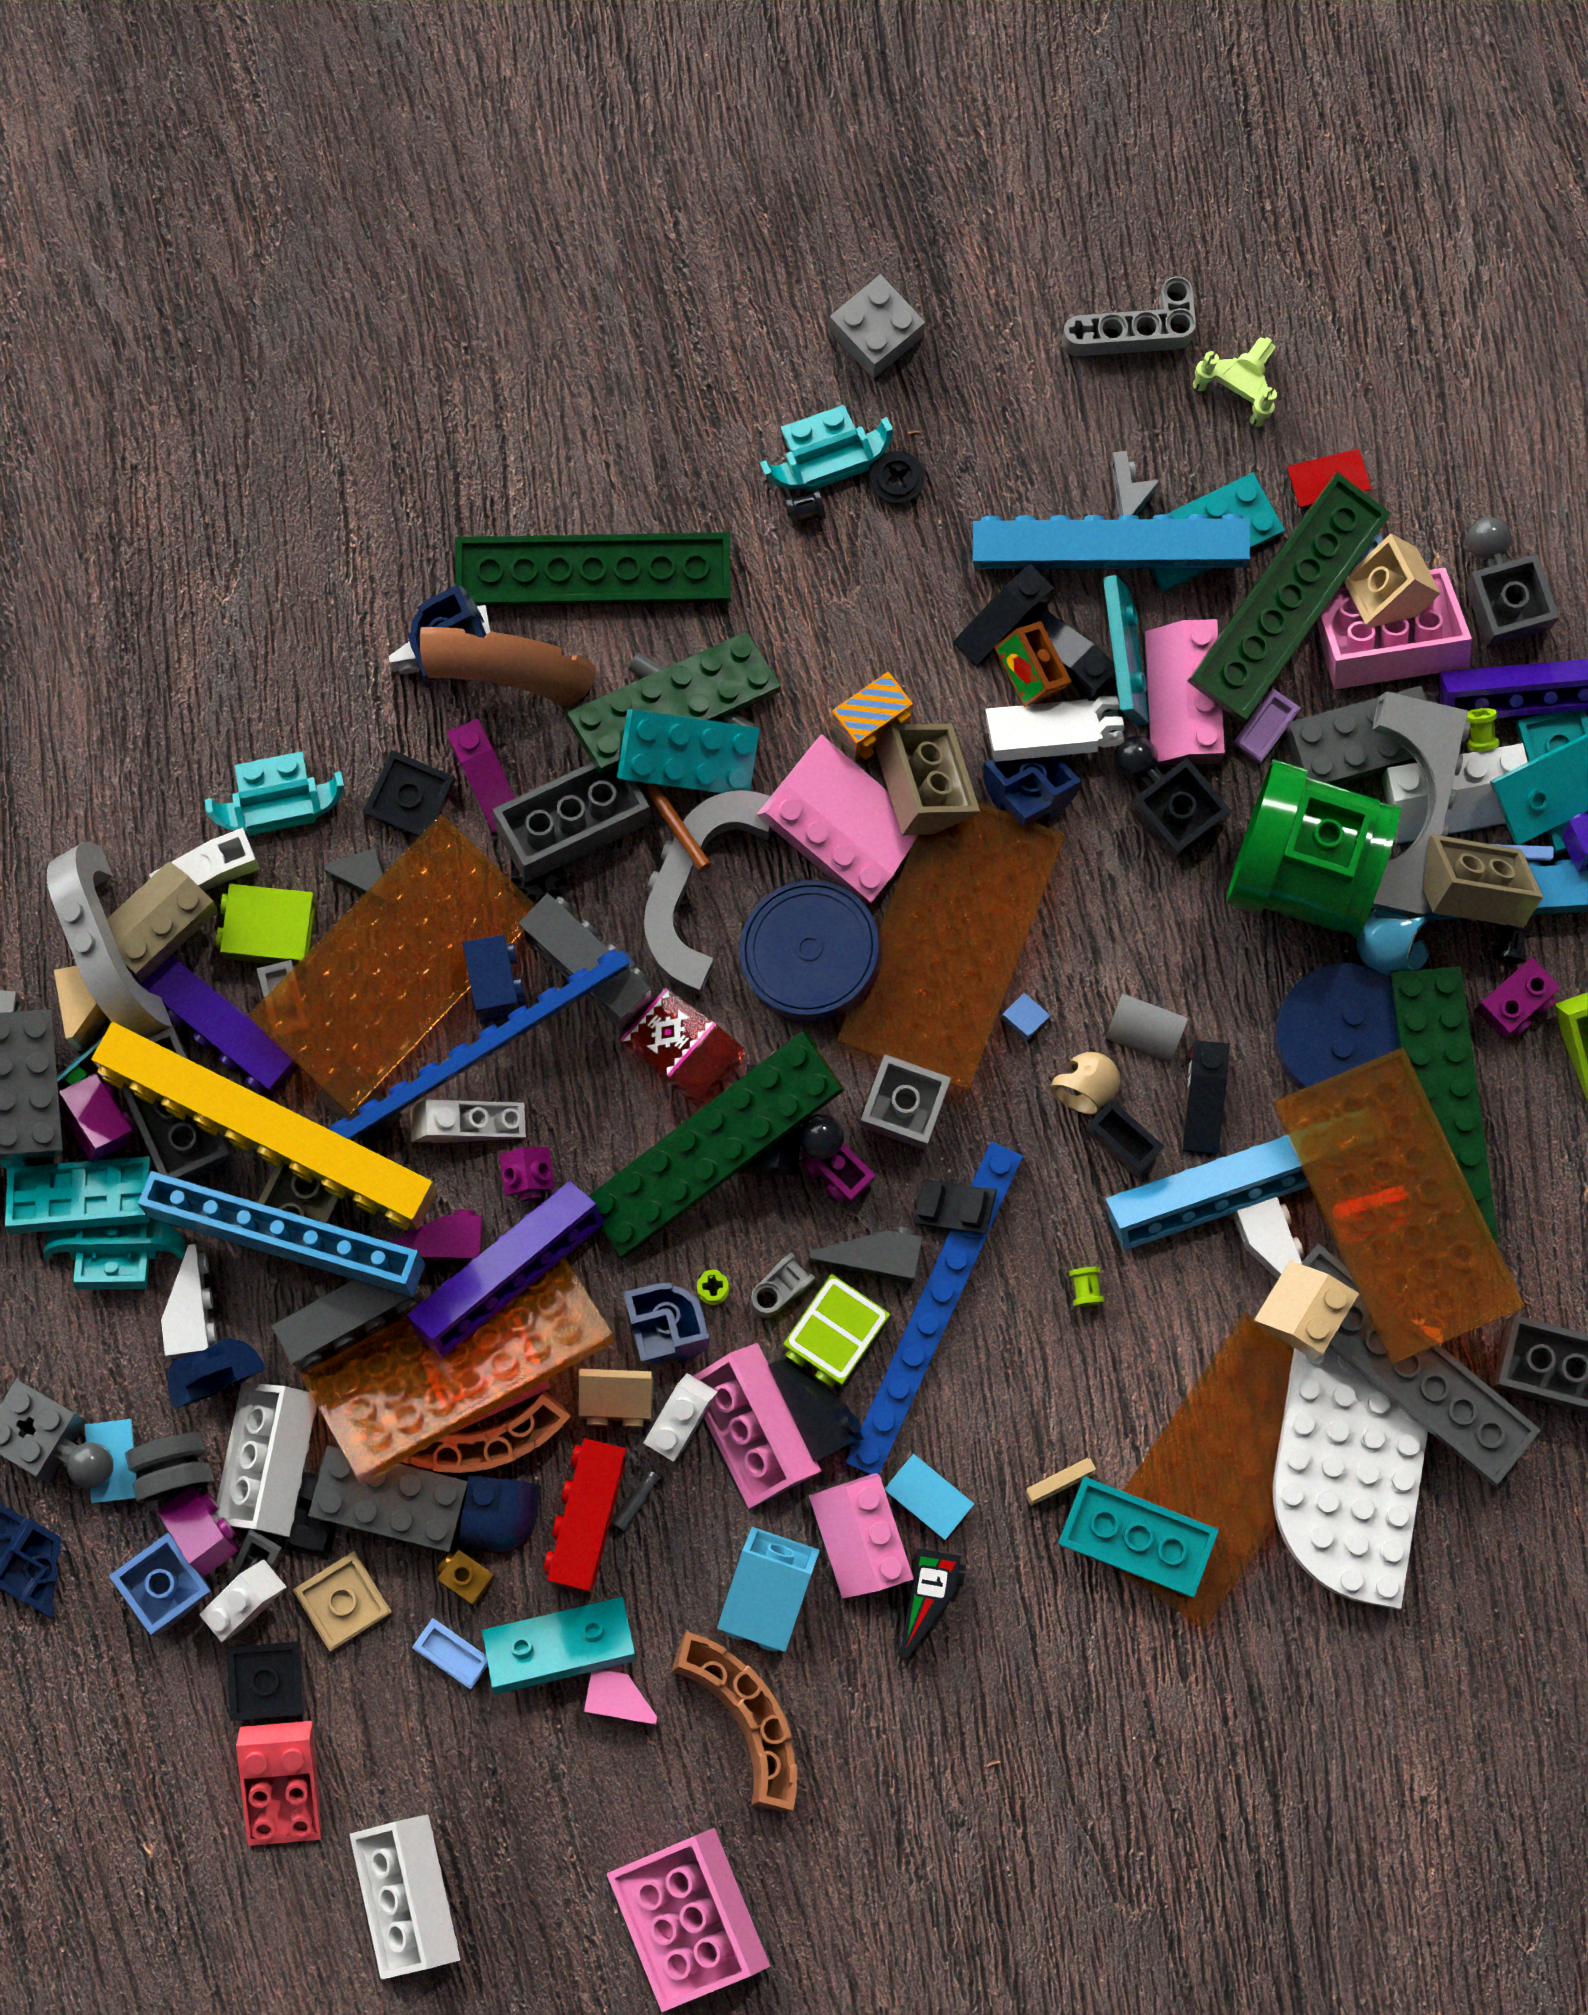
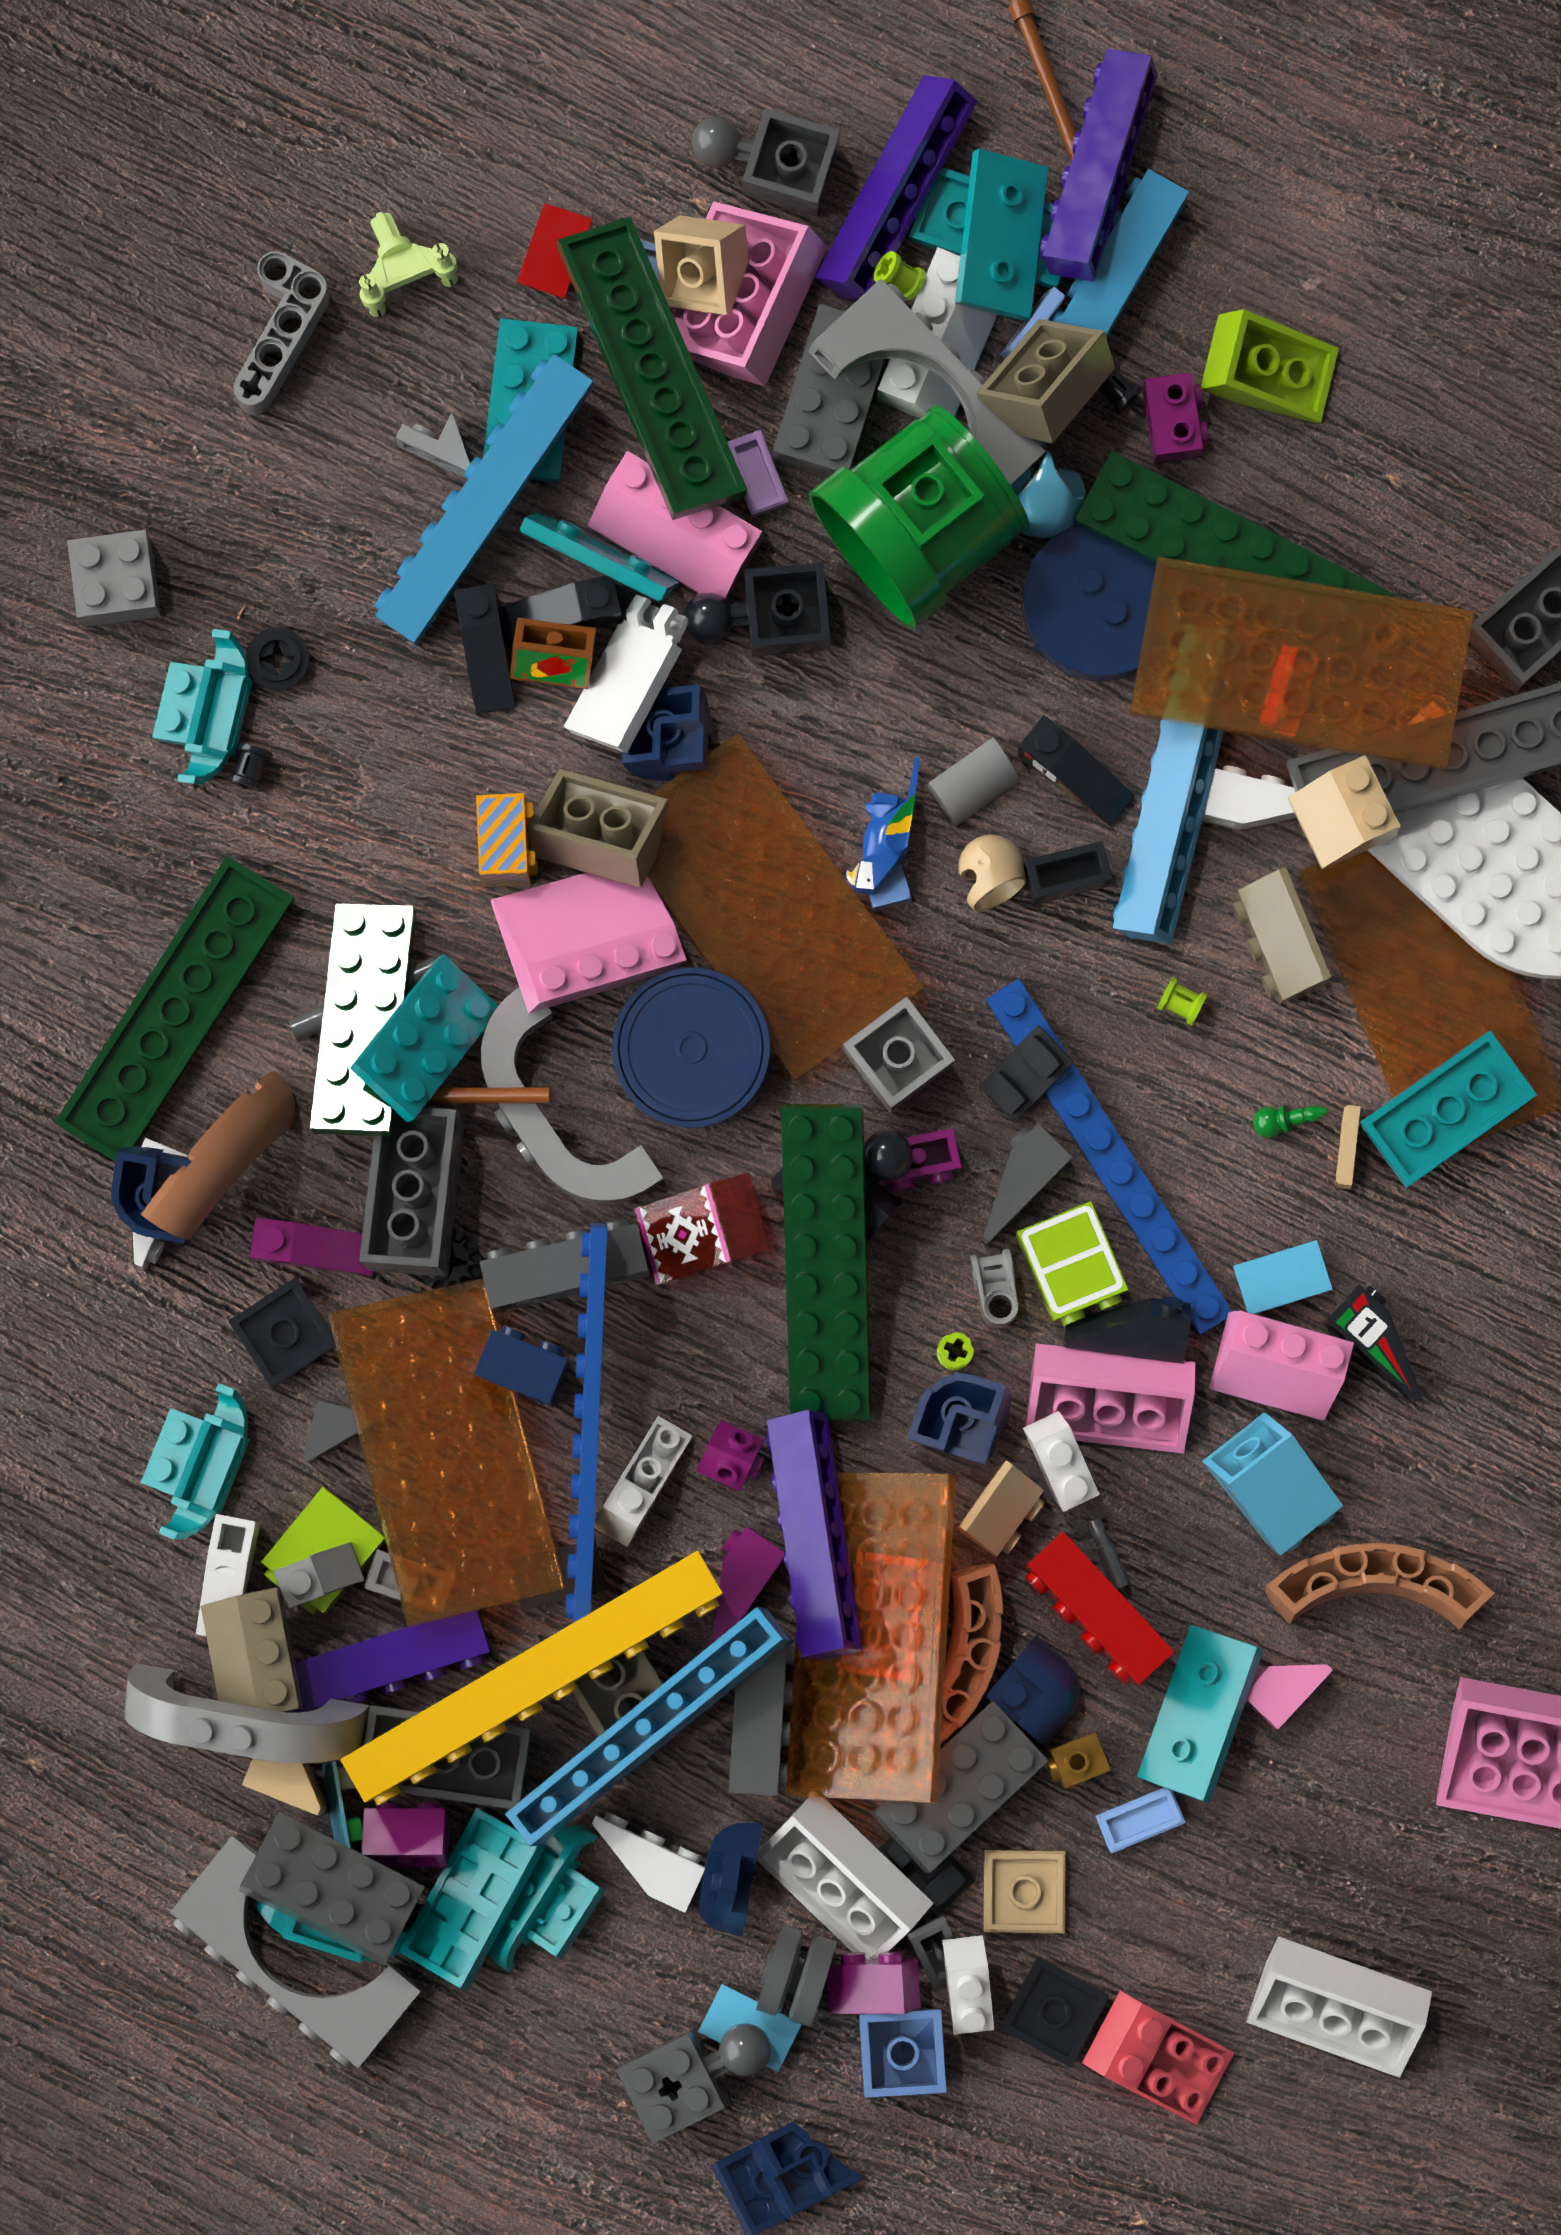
camera: 55 degrees left, 5 degrees up
(245, 930) = (319, 1575): none -> light grey slope
(1042, 1414) = (1270, 1122): none -> green bar
(1061, 990) = (884, 838): none -> blue animal
(1182, 1327) = (1281, 937): none -> slope

